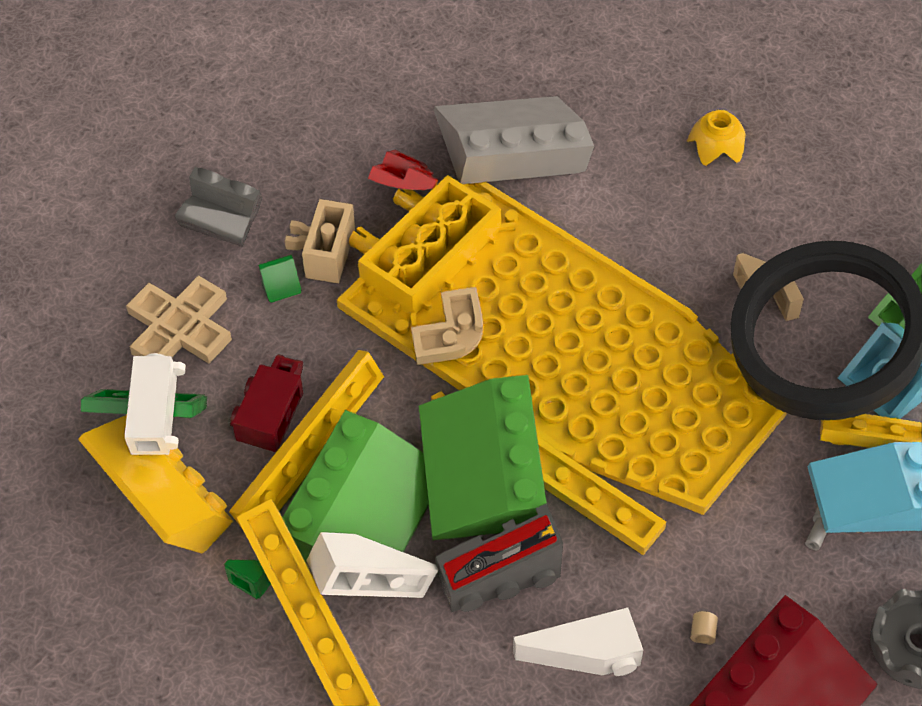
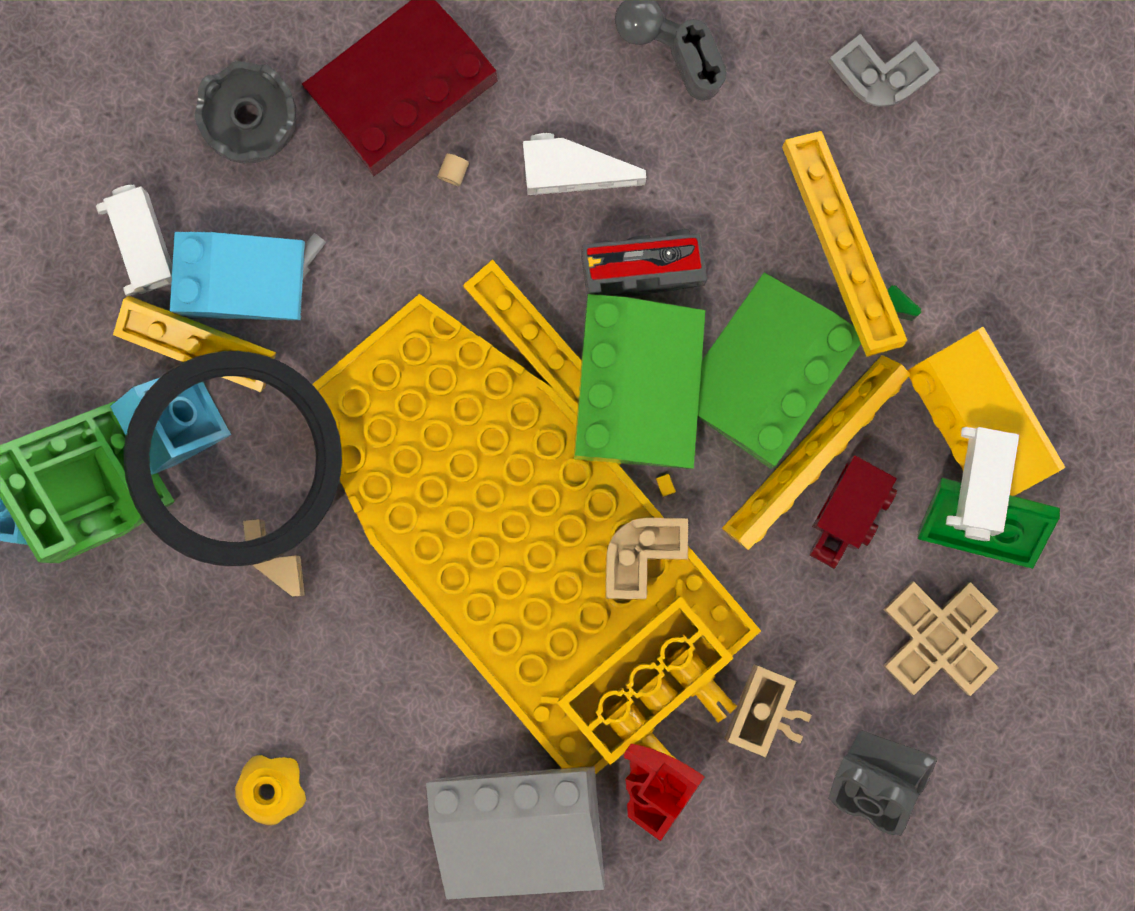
camera: 175 degrees left, 30 degrees up
(280, 278) = (820, 675): green slope -> none
(366, 568) = (787, 276): white slope -> none

